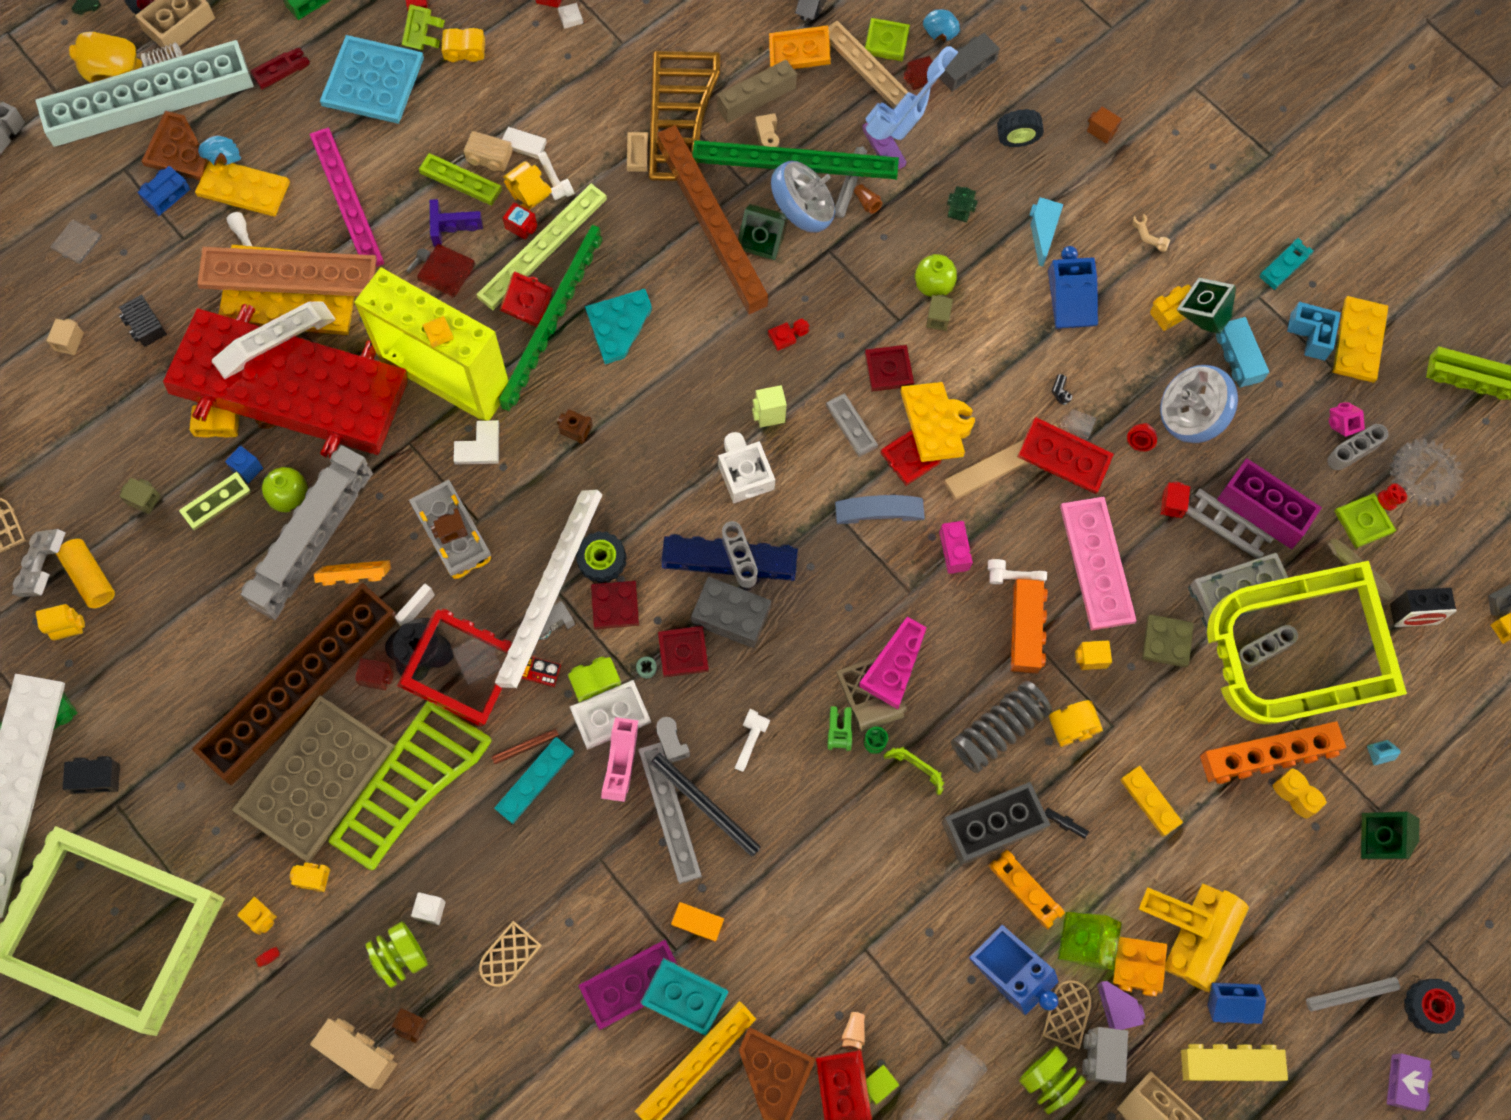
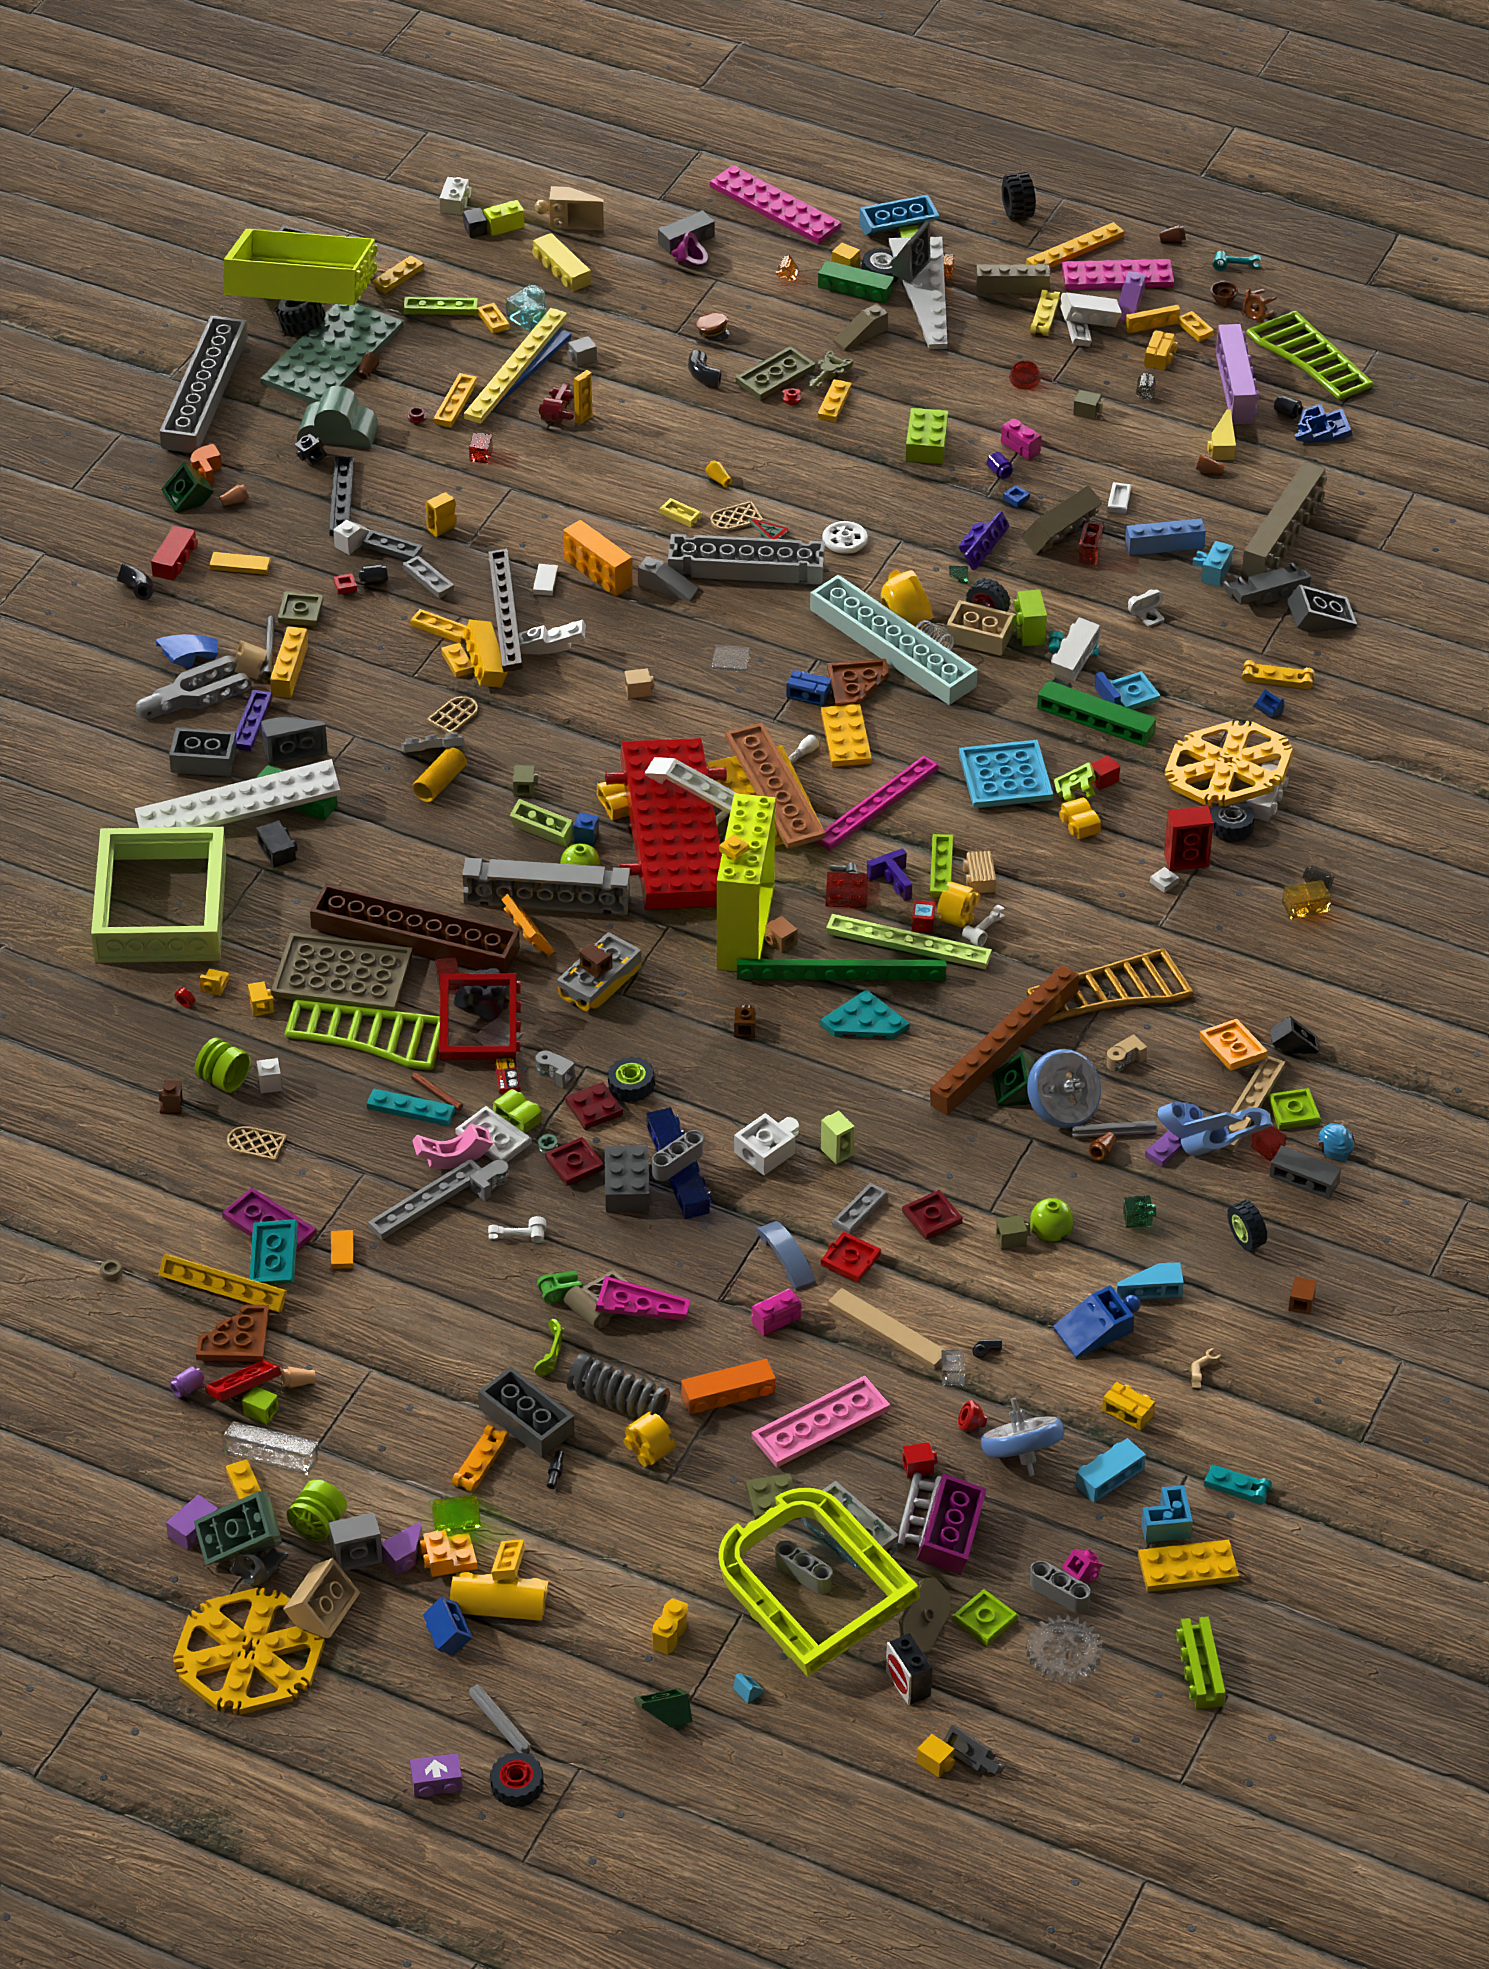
camera: 70 degrees right, 25 degrees down
(60, 622) = (389, 773): yellow brick -> none
(142, 320) = (680, 721): black brick -> none
(219, 149) = (866, 704): dark azure hair -> none
(279, 67) = (977, 712): dark red hinge -> none
(354, 1053) = (133, 1069): tan brick -> none
(415, 605) = (529, 979): white tile -> none
(483, 450) = (689, 973): white tile -> none
(525, 142) = (1008, 894): white tile -> none
(526, 299) = (846, 942): red plate -> none
(548, 589) = (573, 1046): white plate -> none
(637, 151) = (1041, 973): tan tile -> none
(705, 804) = (444, 1217): black axle -> none
(756, 91) = (1165, 1029): dark tan brick -> none
(783, 335) = (923, 1133): red plate -> none
(818, 161) = (1111, 1086): green plate -> none
(878, 736) = (562, 1311): green wheel -> none
(936, 421) = (895, 1260): yellow plate -> none
(998, 572) = (772, 1353): white brick -> none
(1016, 971) = (401, 1469): blue slope -> none
(1065, 455) = (915, 1363): red plate -> none
(1086, 1013) = (391, 1508): tan window -> none
(1094, 655) = (726, 1442): yellow brick -> none
(1151, 801) = (608, 1526): yellow plate -> none
(1209, 304) = (1132, 1415): dark green slope -> none
(1233, 1064) = (392, 1643): light yellow brick -> none
(1327, 735) = (703, 1599): orange brick -> none
(1392, 497) = (1021, 1620): red wheel -> none

